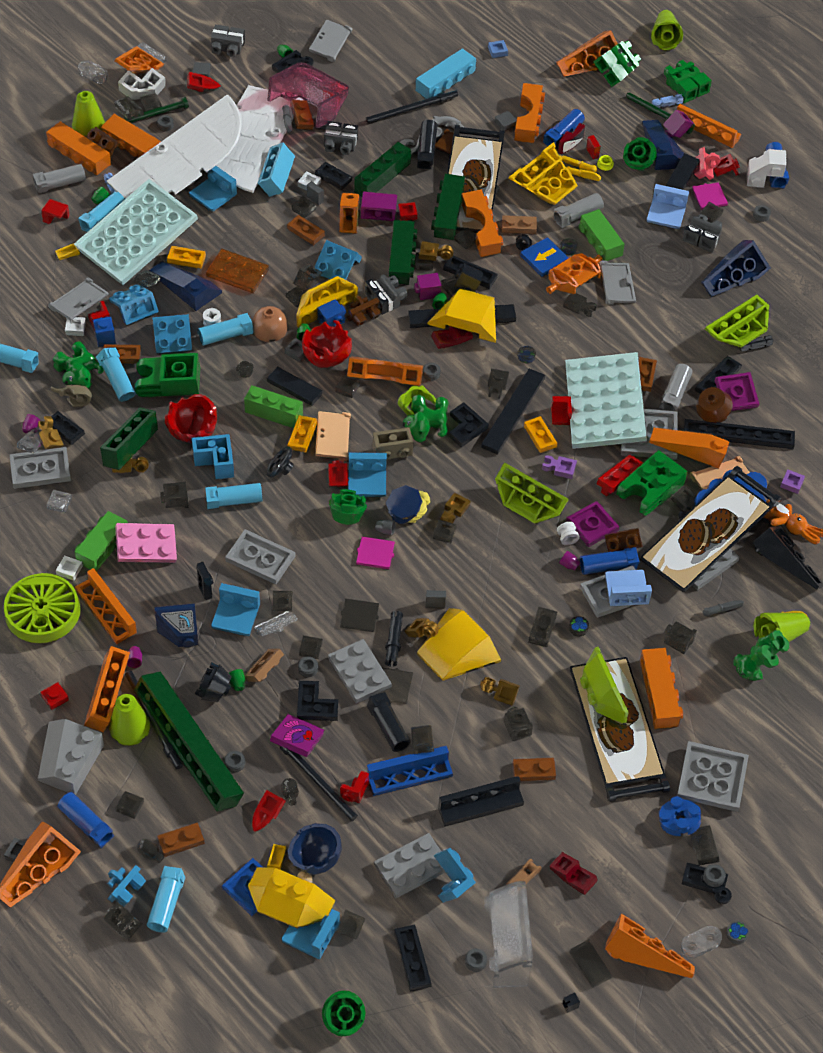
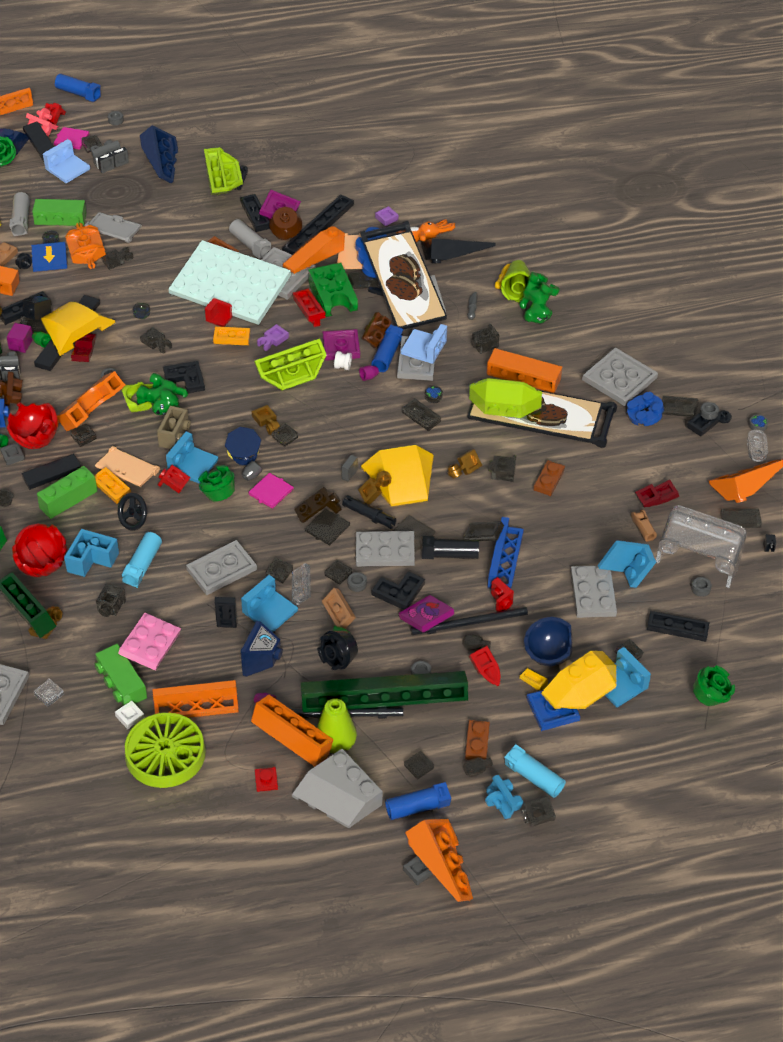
camera: 60 degrees left, 5 degrees down
(380, 594) = (316, 503): none -> dark brown bracket
(480, 801) = (562, 523): black fence -> none
(513, 411) = (193, 343): black tile -> none
(770, 164) = (81, 85): white brick -> none

